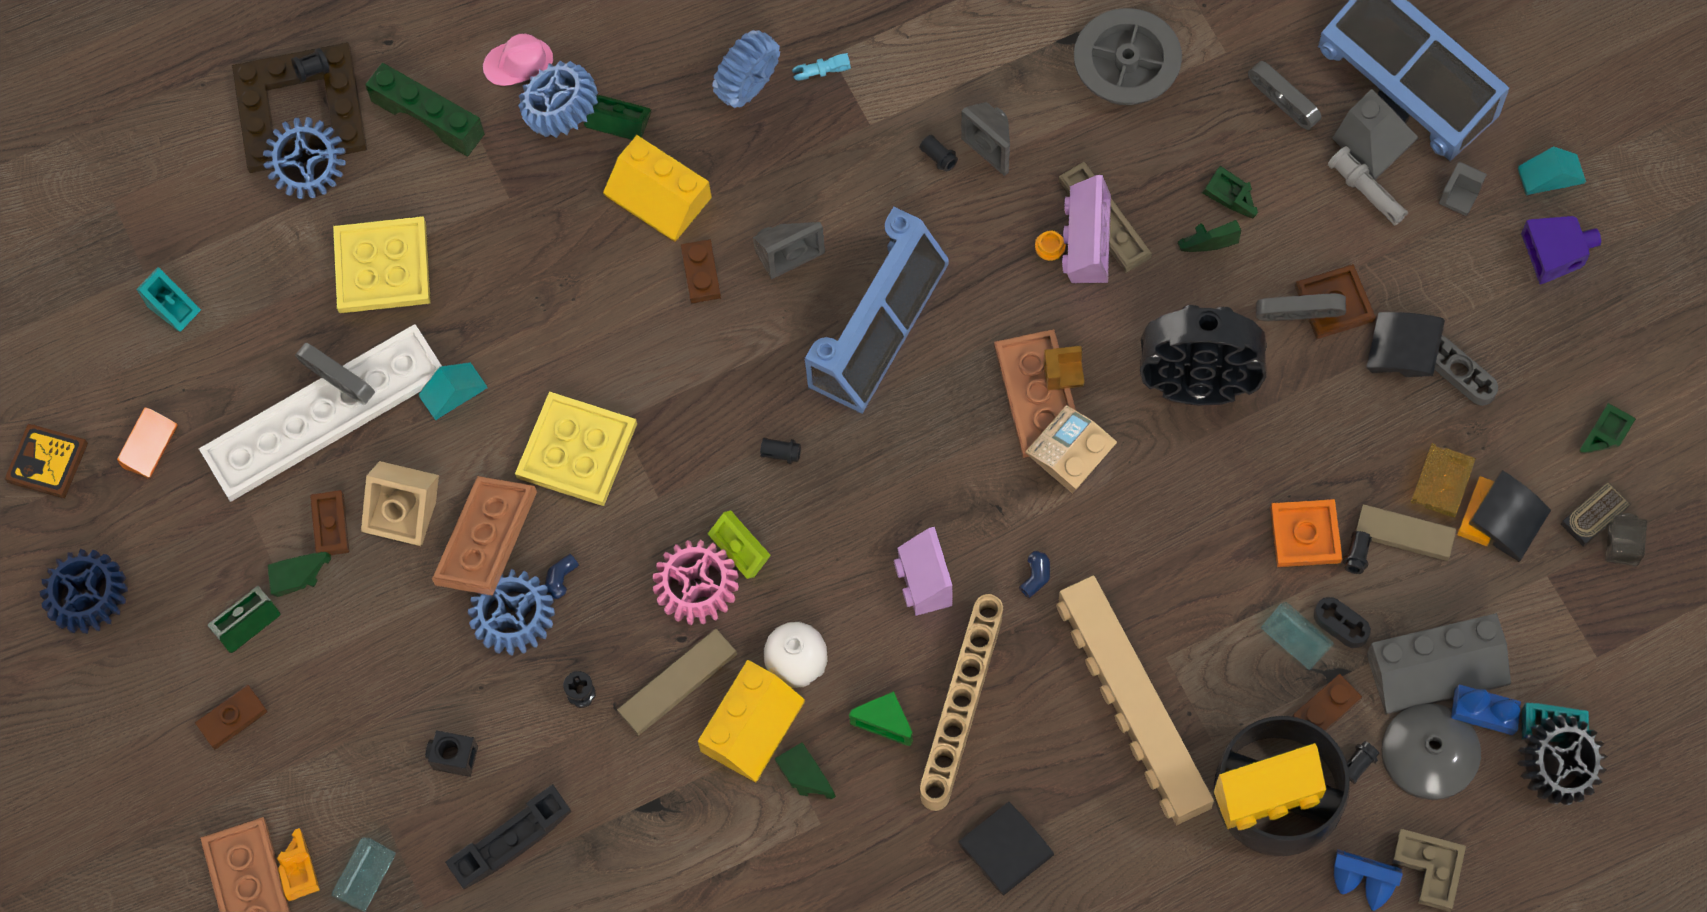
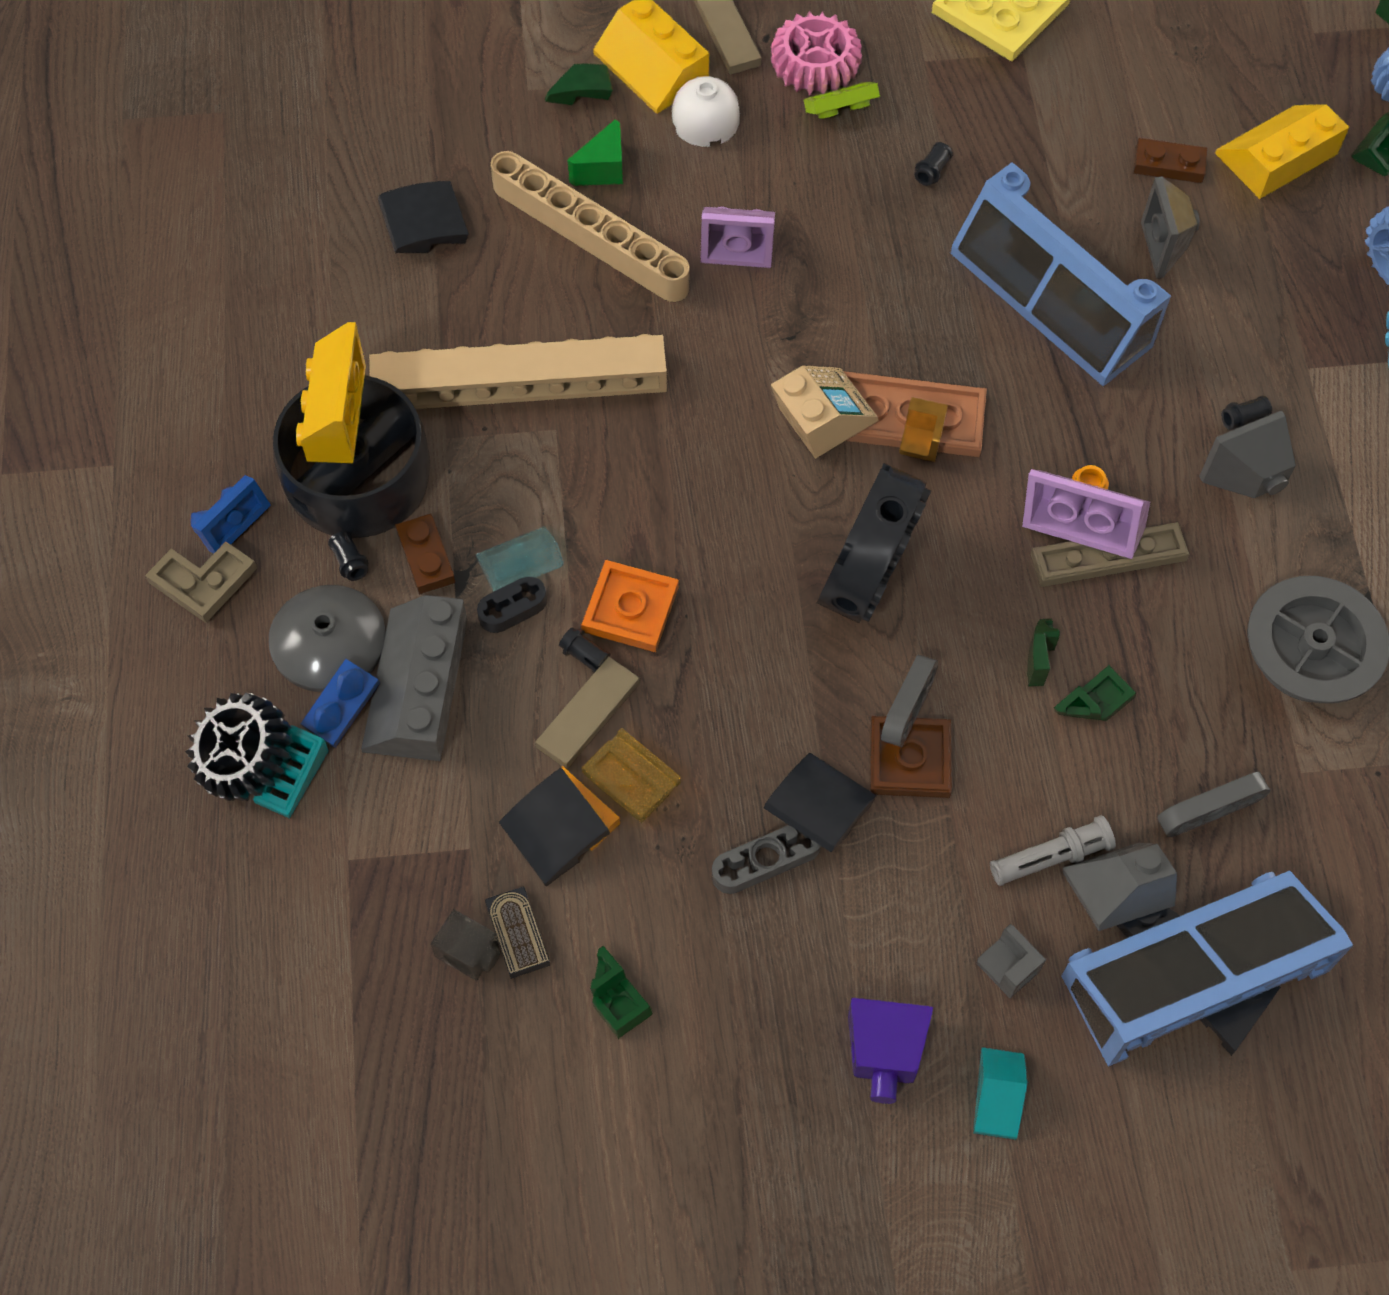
camera: 105 degrees right, 5 degrees down
(1039, 576) = (699, 341): dark blue arm -> none

